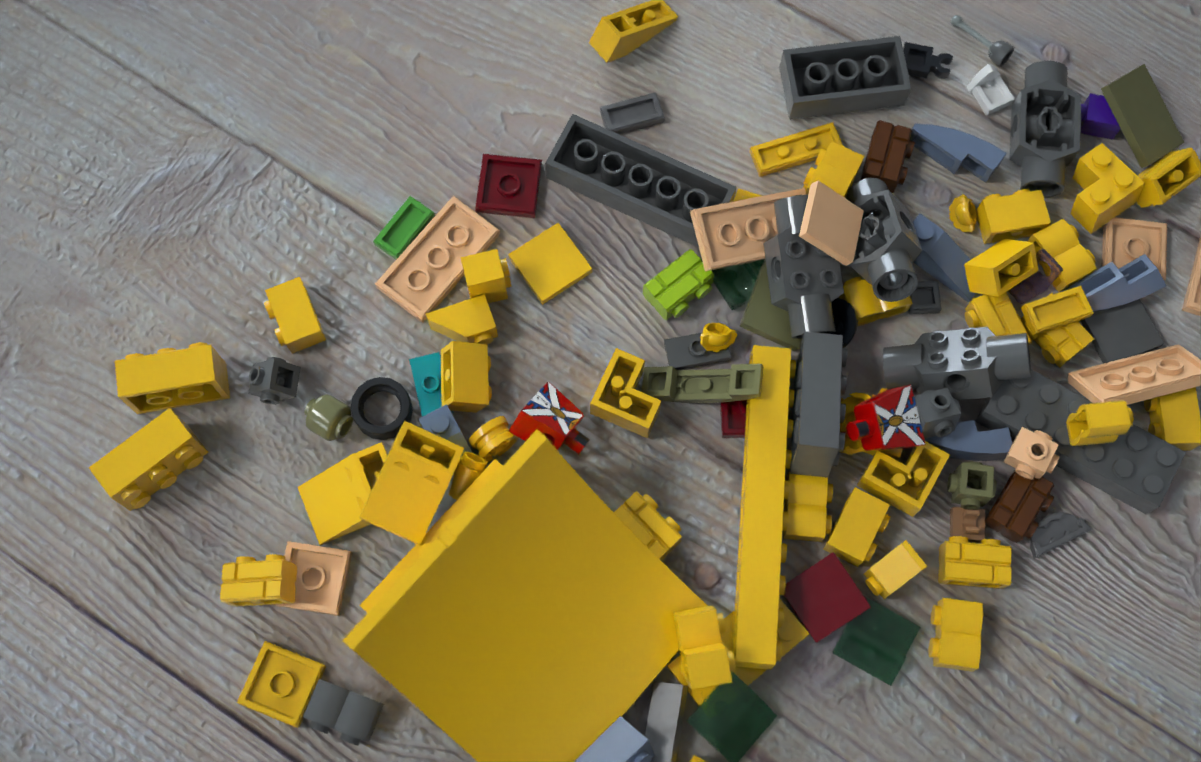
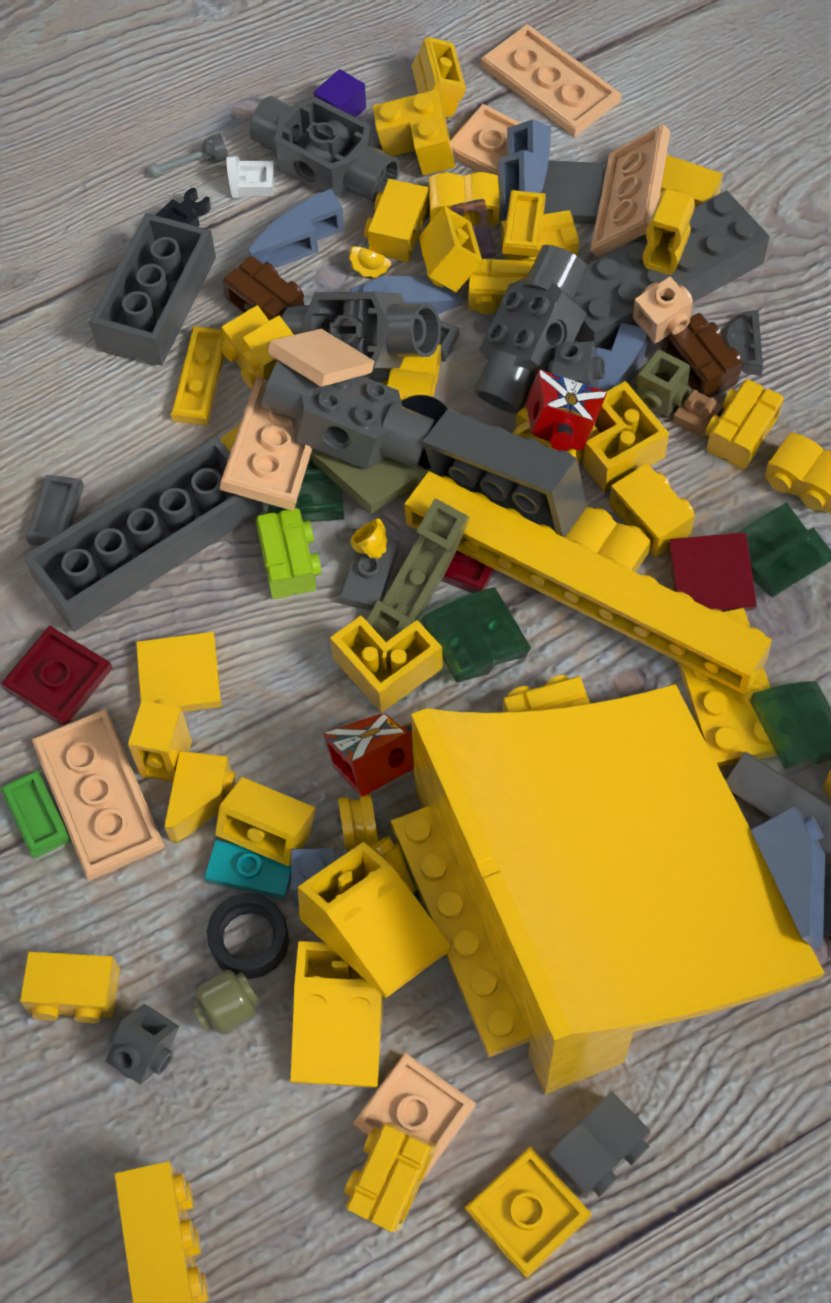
camera: 60 degrees left, 10 degrees down
(172, 378) = (67, 1167): yellow brick -> none
(684, 448) = (476, 634): none -> clear green slope
(701, 649) = (719, 707): yellow brick -> none
(894, 570) = (718, 490): yellow slope -> none
(1142, 116) = (363, 64): olive tile -> none

